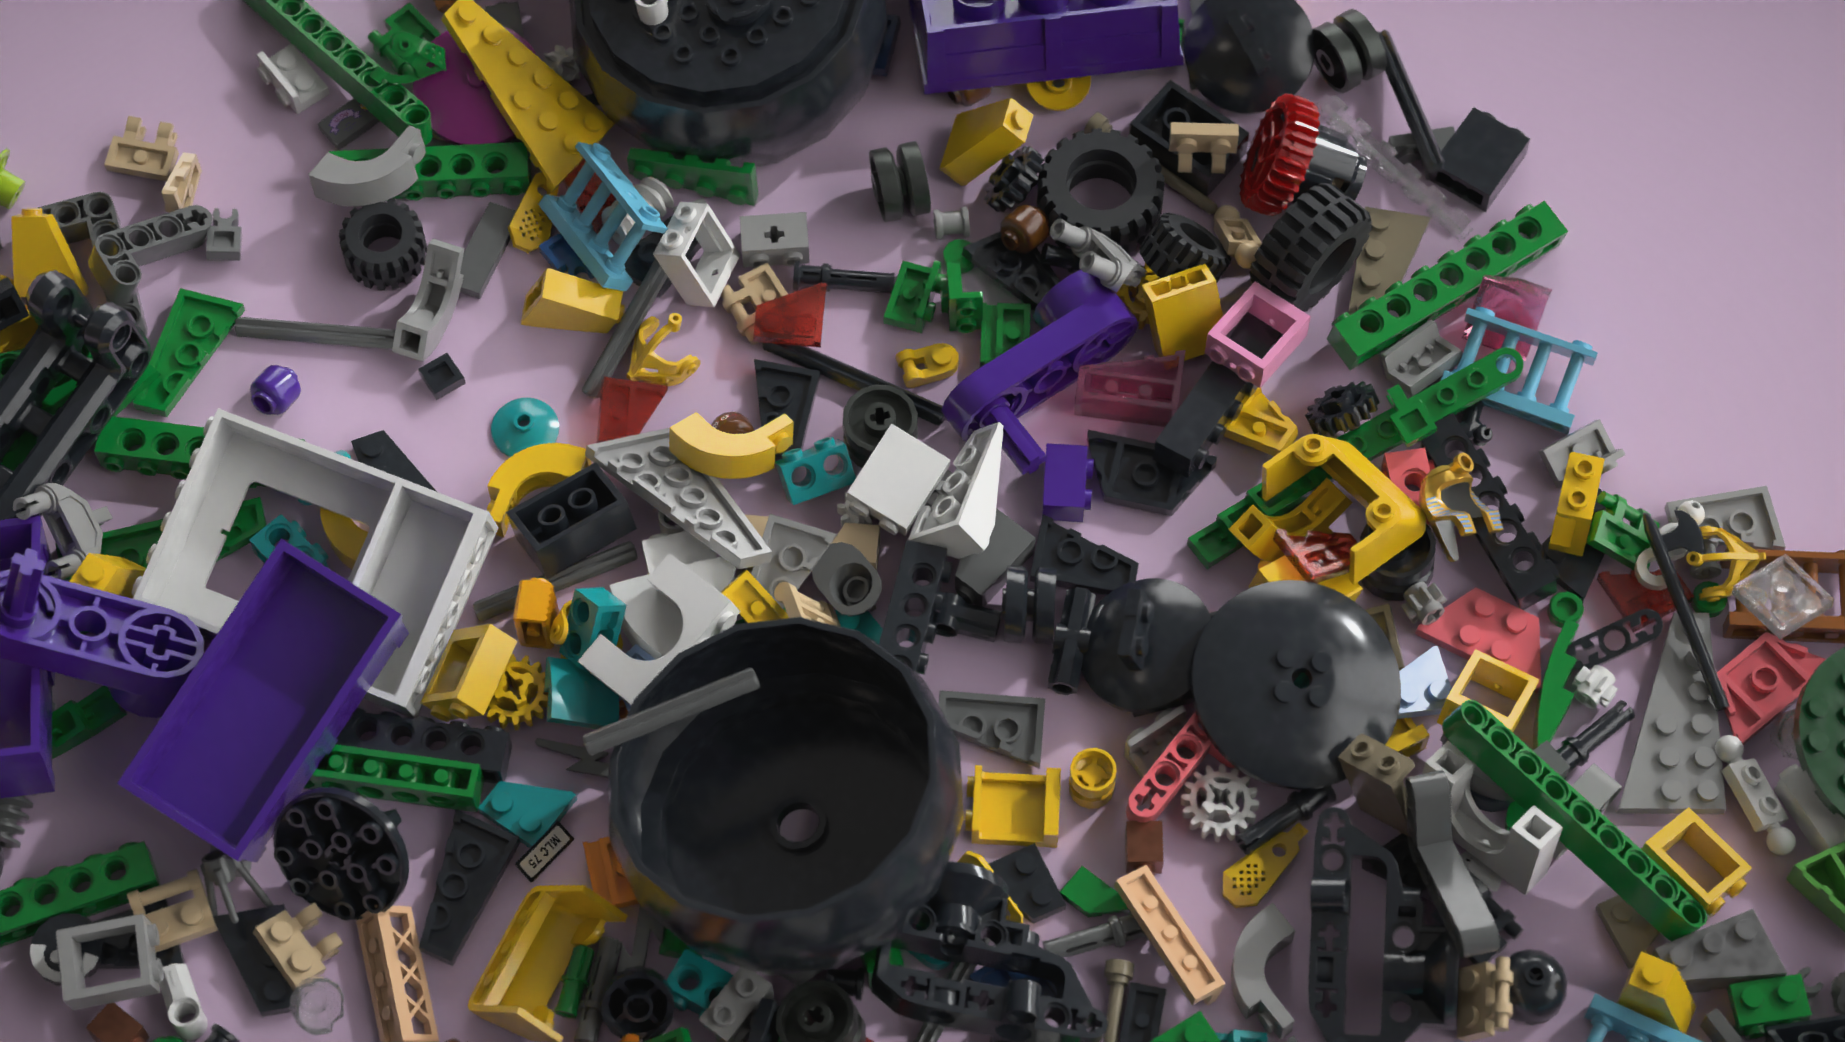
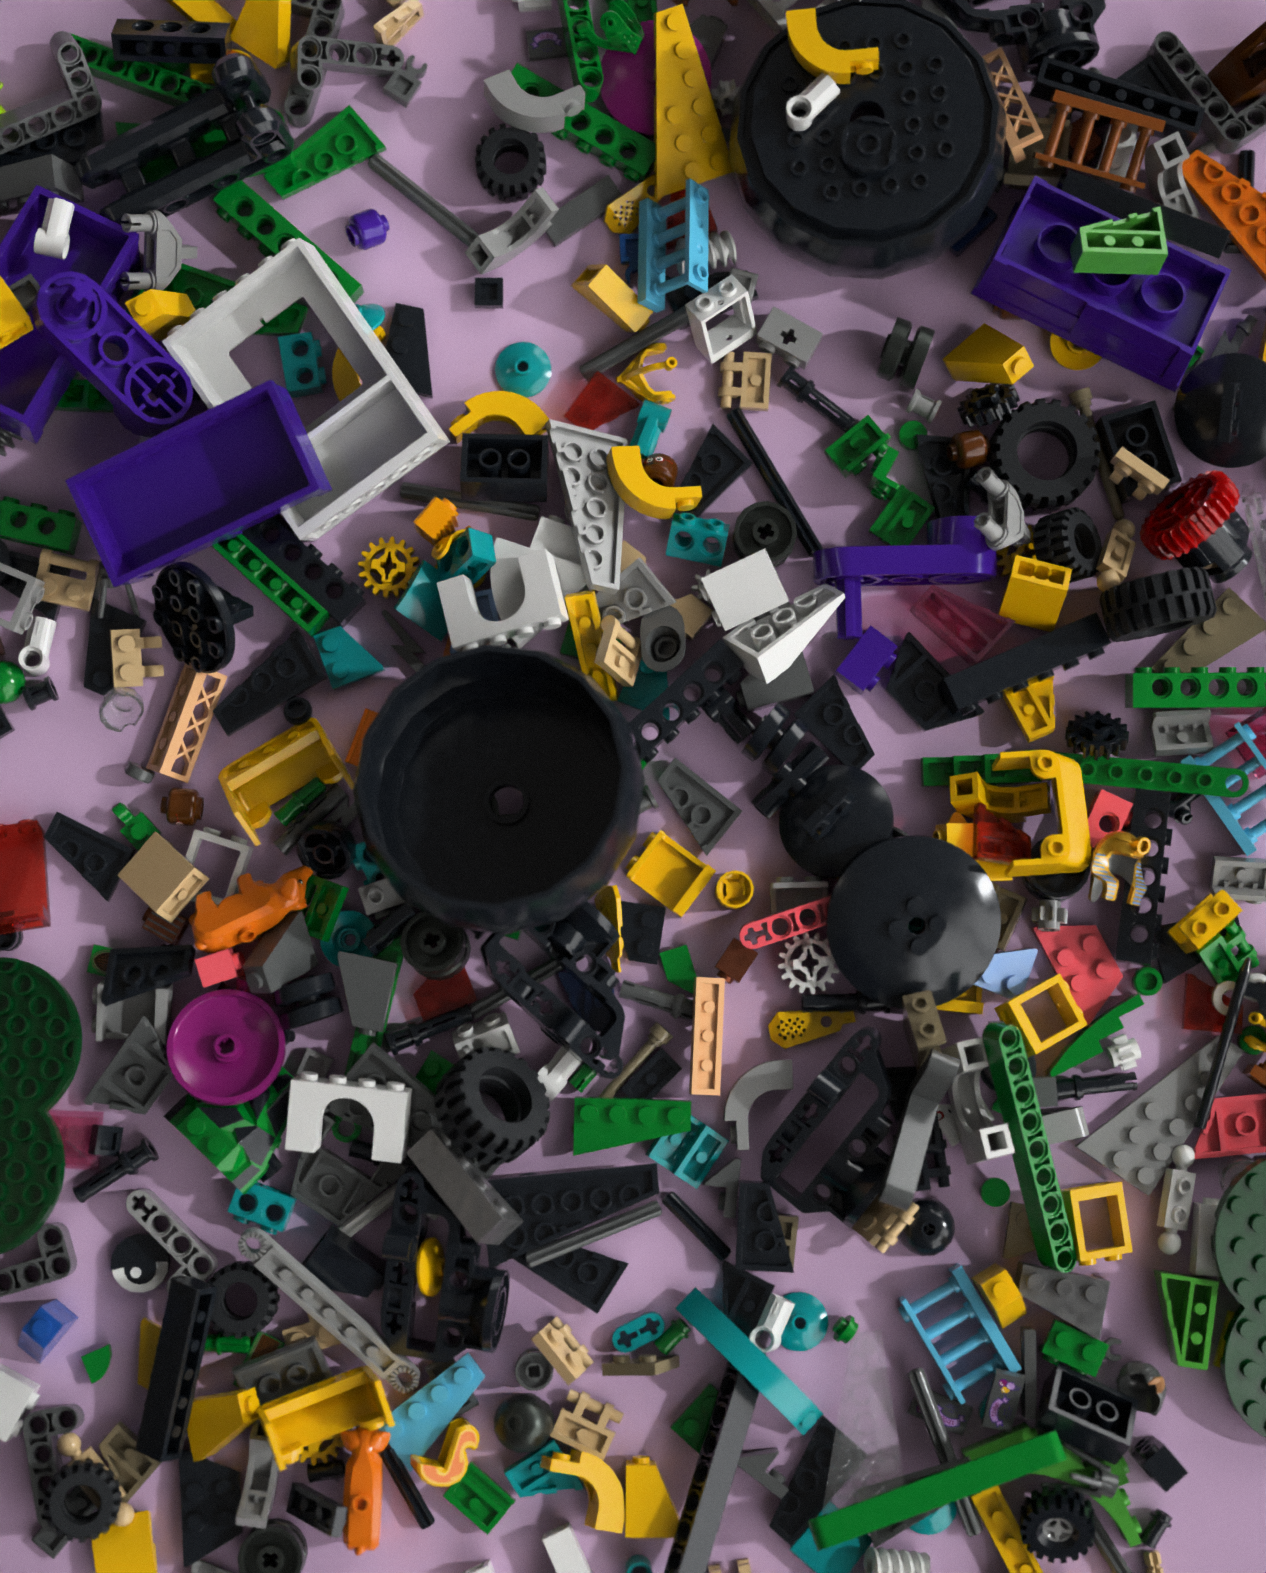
camera: 30 degrees right, 20 degrees up
(468, 672) = (362, 537): yellow window -> none
(511, 892) = (297, 711): none -> black plate
(544, 851) = (338, 695): sticker -> none
(671, 711) = (451, 687): dark grey axle -> none
(692, 395) = (651, 423): none -> teal piece
(707, 179) = (763, 246): green wing -> none
(792, 318) = (759, 410): clear red wing -> none
(939, 360) = (843, 507): yellow plate -> none
(1273, 311) = (1098, 635): bright pink window -> none
(1409, 420) = (1134, 781): green plate -> none
(1572, 907) = (994, 1192): none -> green tile
(1634, 620) = (1171, 1021): black beam -> none

